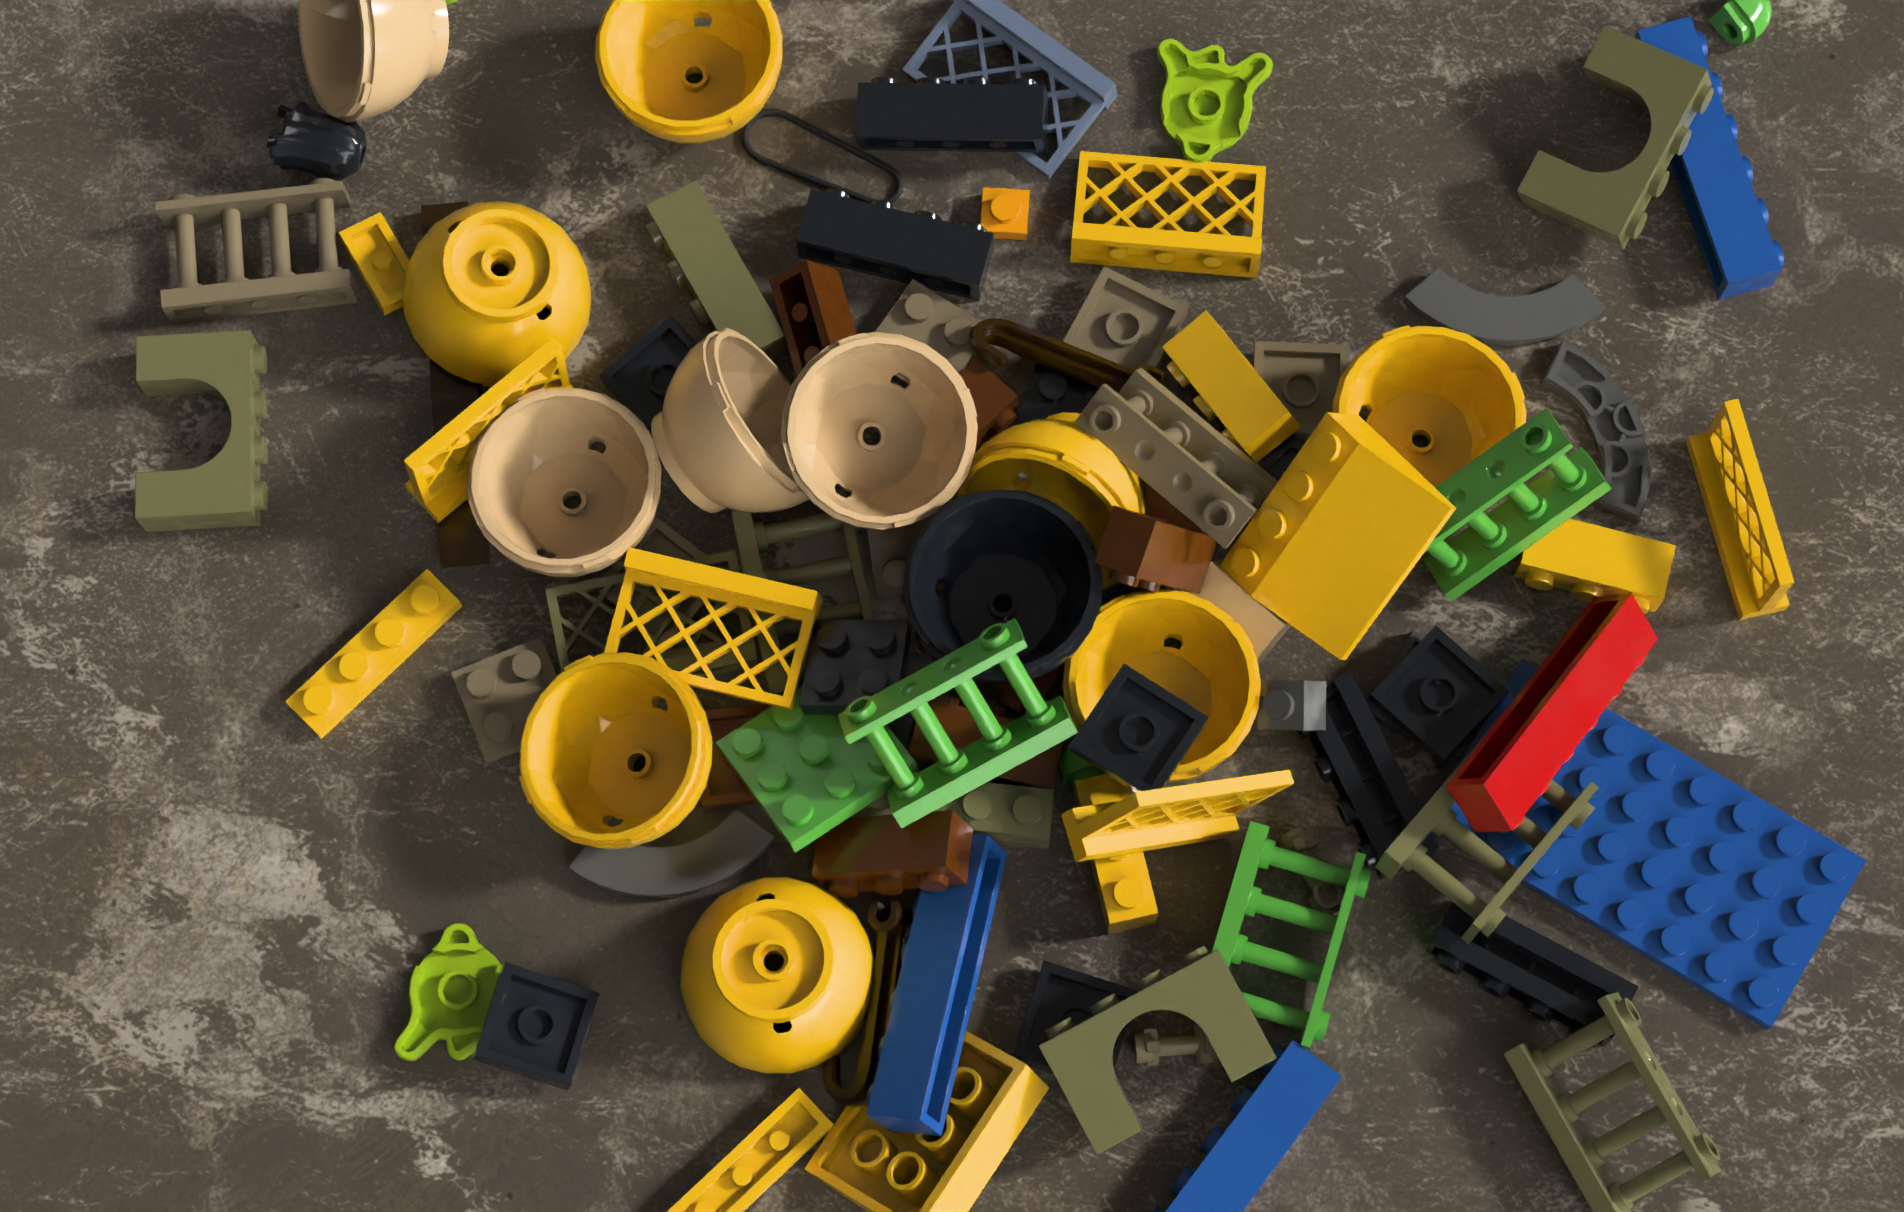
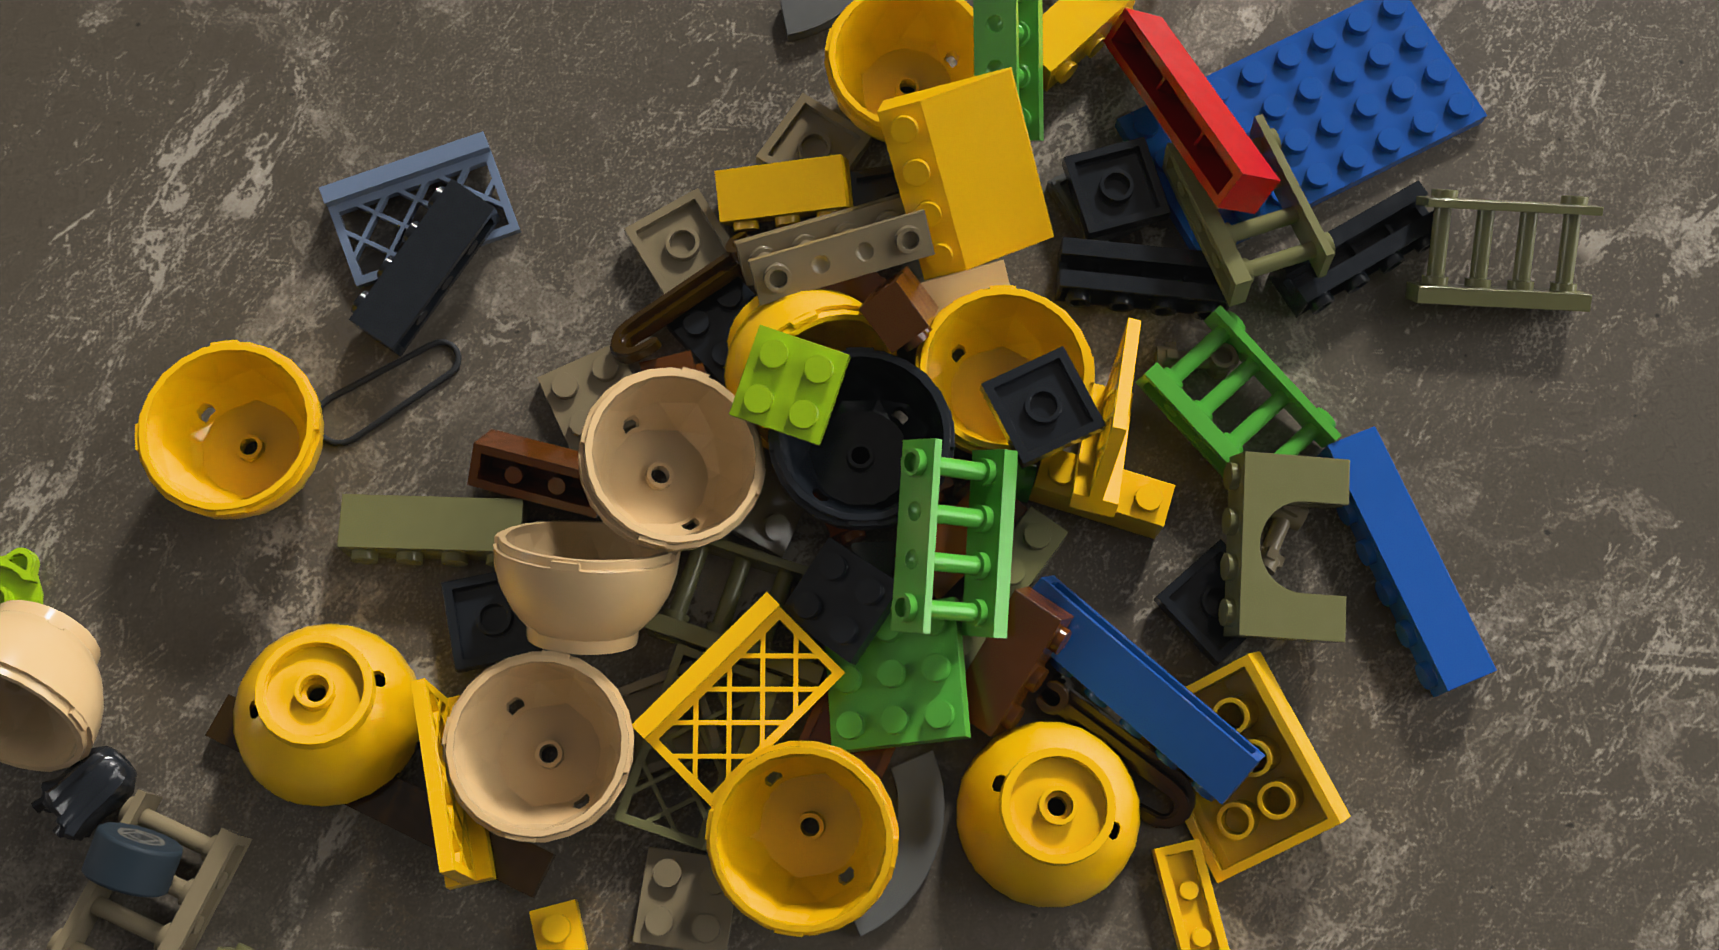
camera: 65 degrees left, 0 degrees up
(279, 214) = (132, 860): none -> black wheel
(377, 259) = (229, 799): yellow plate -> none
(895, 243) = (499, 372): black brick -> none
(1004, 489) = (789, 385): none -> lime plate
(1005, 212) = (528, 279): light orange plate -> none
(1170, 248) = (639, 174): yellow fence -> none
(1206, 100) = (535, 83): lime tile -> none
(1292, 705) = (1072, 289): dark grey brick -> none

